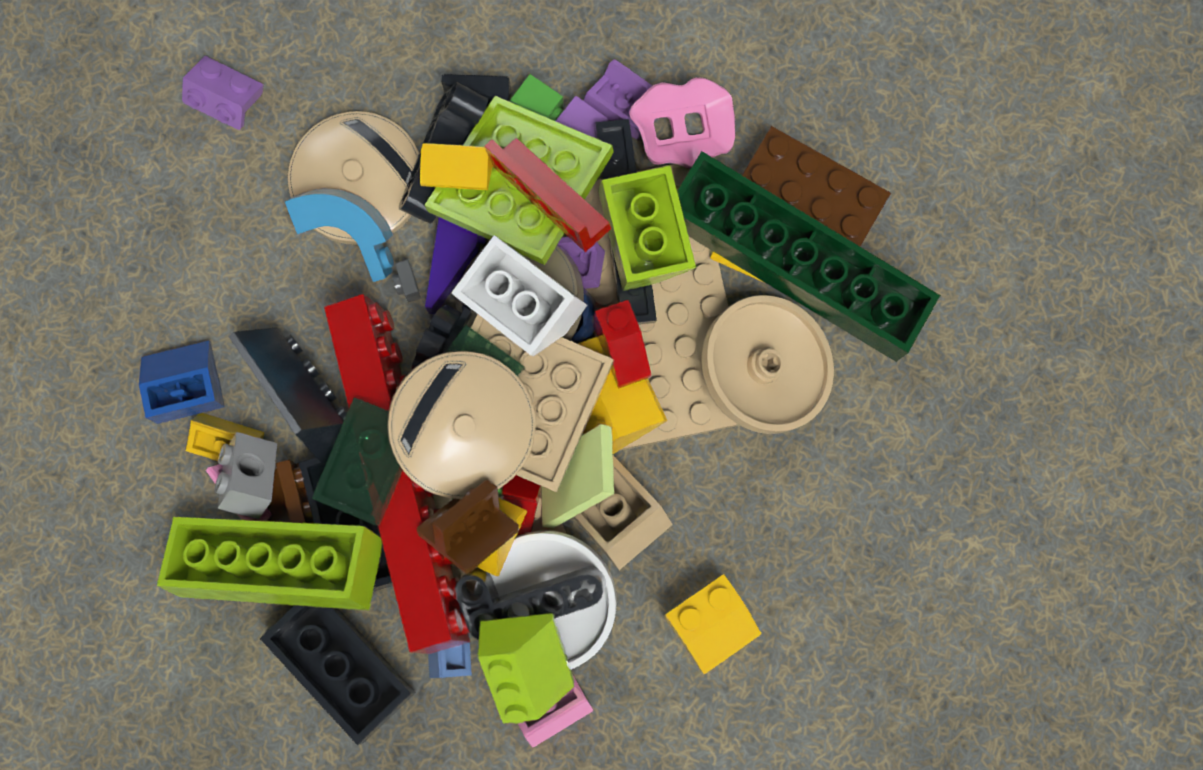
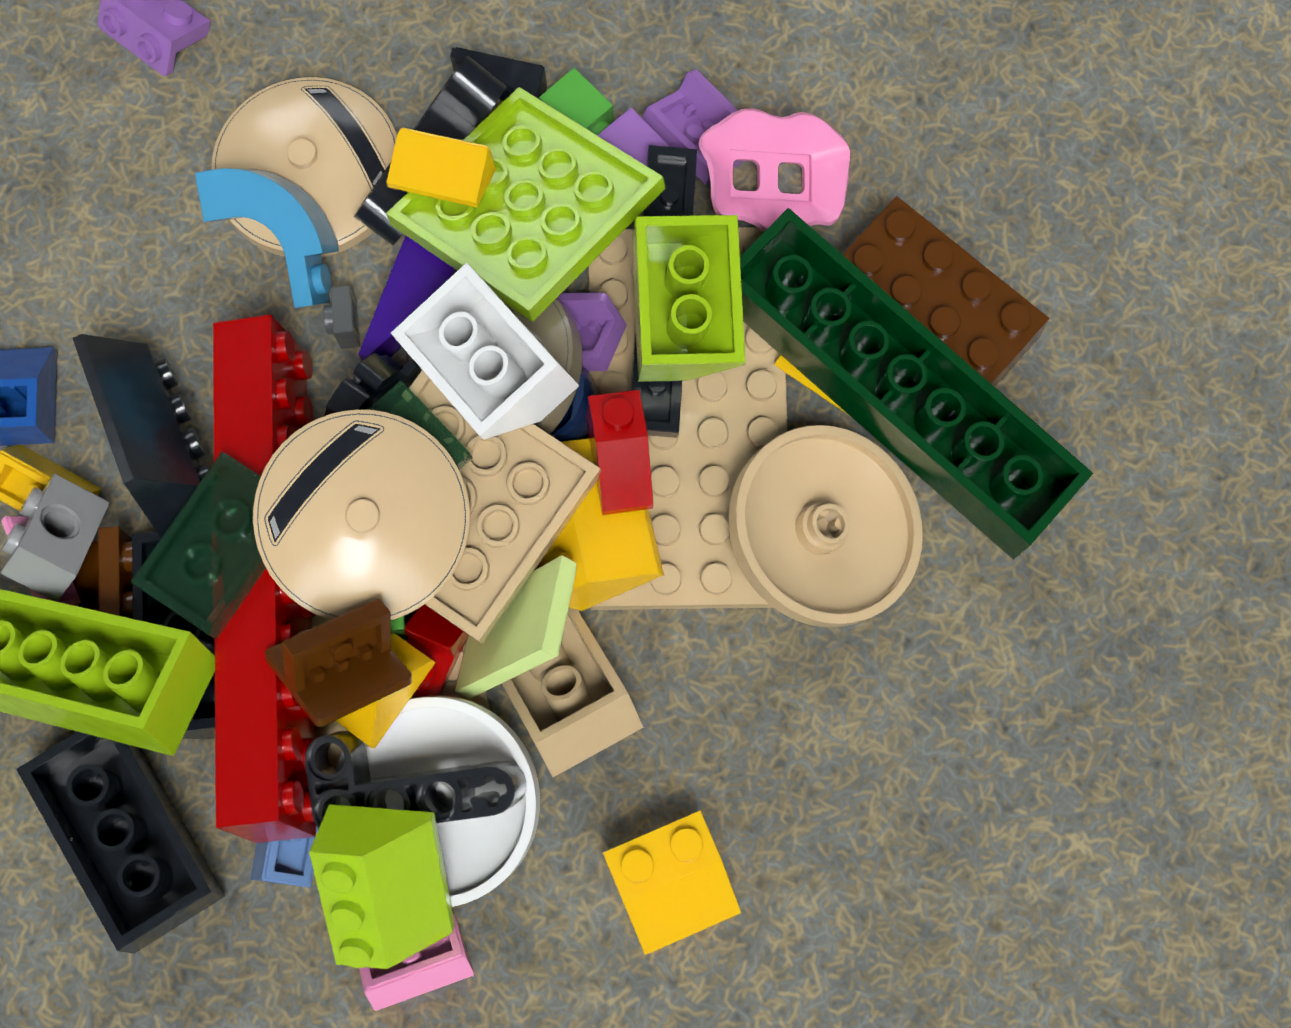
camera: 15 degrees right, 5 degrees down
(548, 193) = (559, 223): fence -> none

